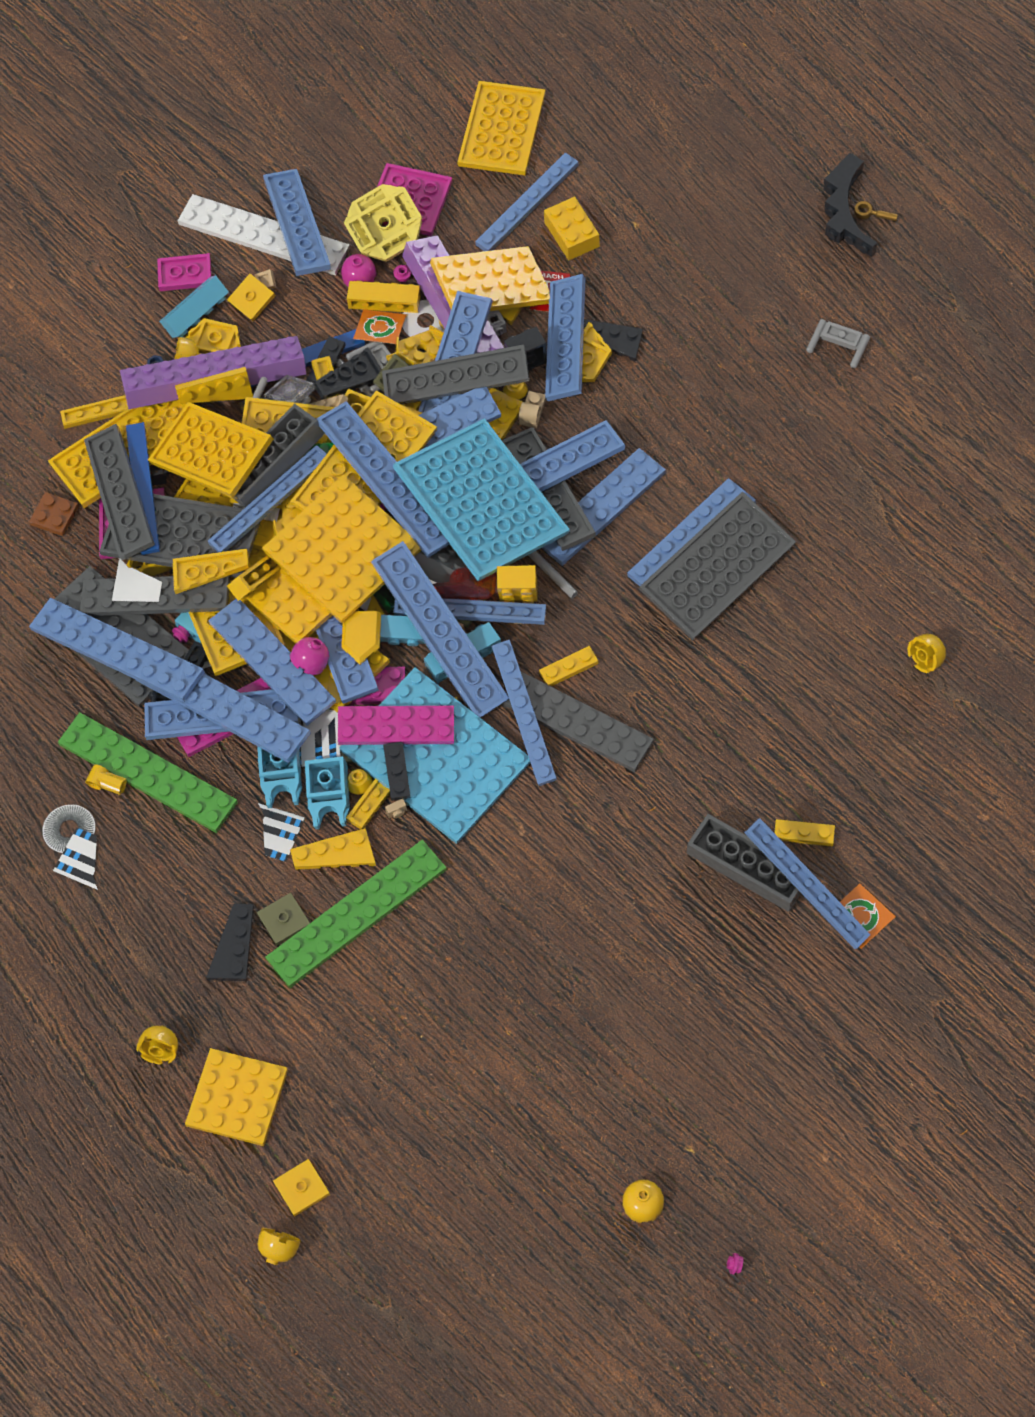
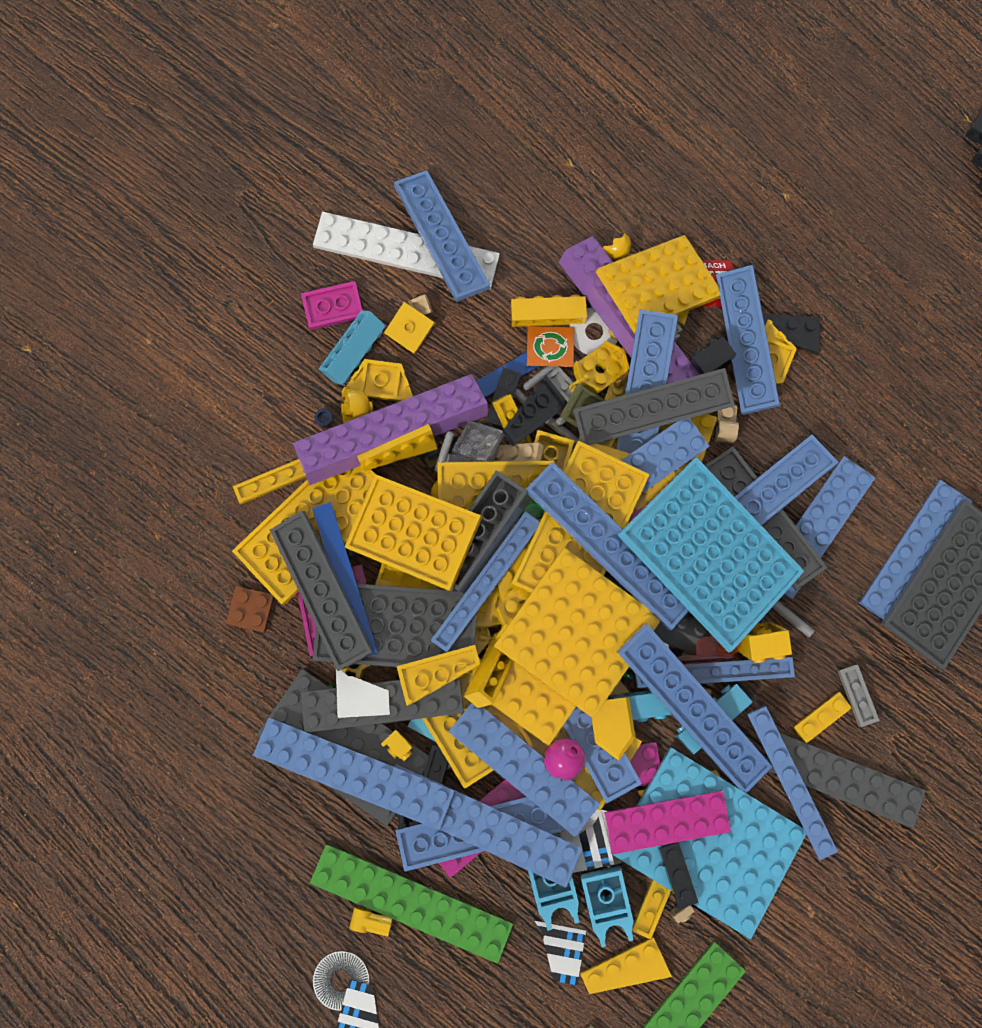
camera: 20 degrees left, 15 degrees up
(161, 632) = (398, 745): none -> yellow brick
(180, 634) = (415, 737): dark pink plate -> none
(358, 268) = (515, 282): dark pink cylinder -> none
(358, 781) = (636, 877): yellow cone -> none
(374, 208) = (538, 207): light yellow piece -> none
(402, 277) = (560, 285): dark pink plate -> none
(425, 189) = (550, 193): dark pink plate -> none
(460, 246) = (619, 249): none -> yellow hair
(501, 128) = (630, 99): yellow plate -> none
(526, 203) = (672, 184): medium blue plate -> none
(571, 228) = (726, 210): yellow brick -> none
(606, 651) = (858, 695): none -> light grey plate

